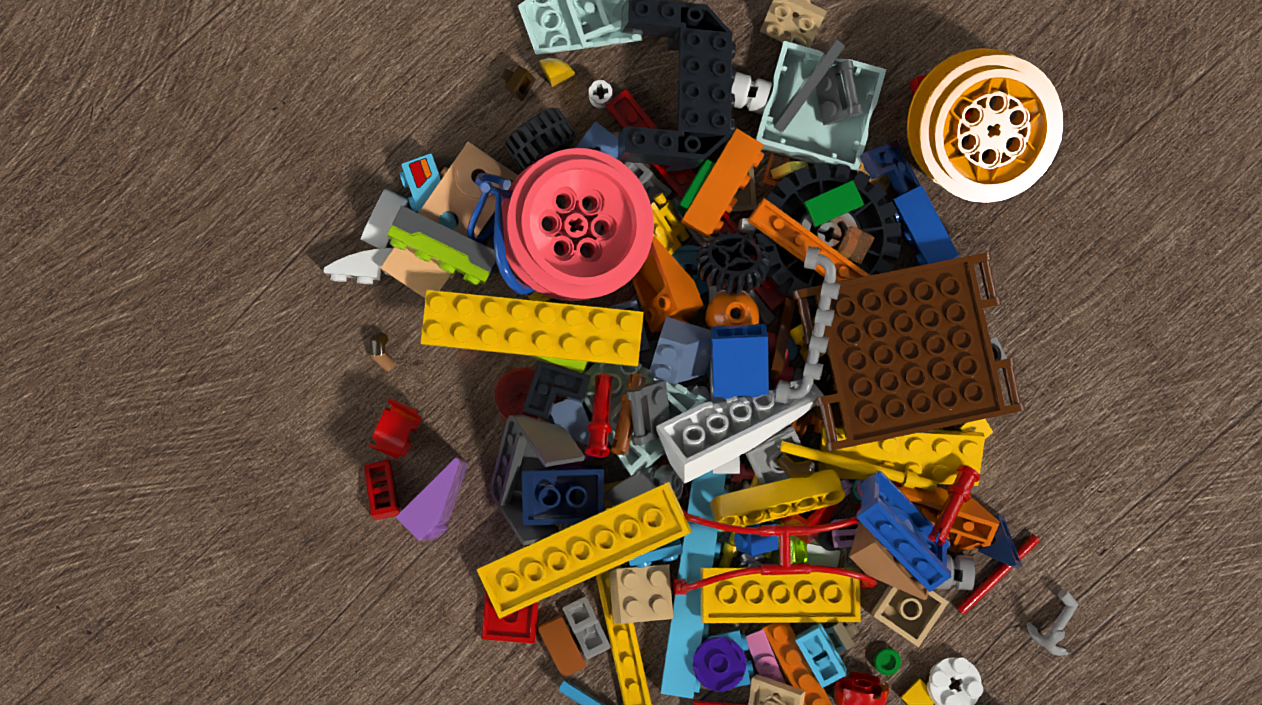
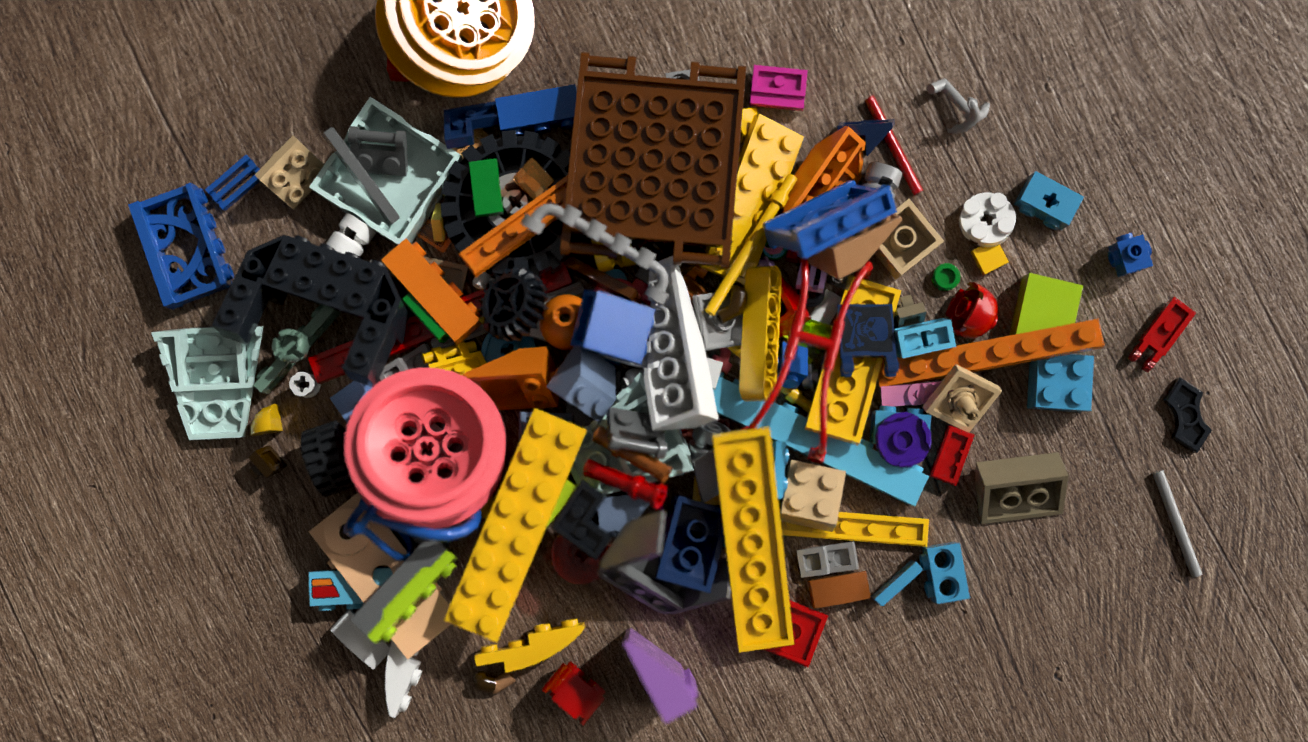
camera: 70 degrees left, 0 degrees up
(386, 512) = (630, 733): red slope -> none
(428, 386) = (542, 645): none -> yellow slope
(631, 73) = (293, 347): none -> sand green plate
(808, 600) = (868, 334): none -> flag
(958, 494) = (808, 156): red pin -> none
(1017, 448) = (778, 87): none -> dark pink plate

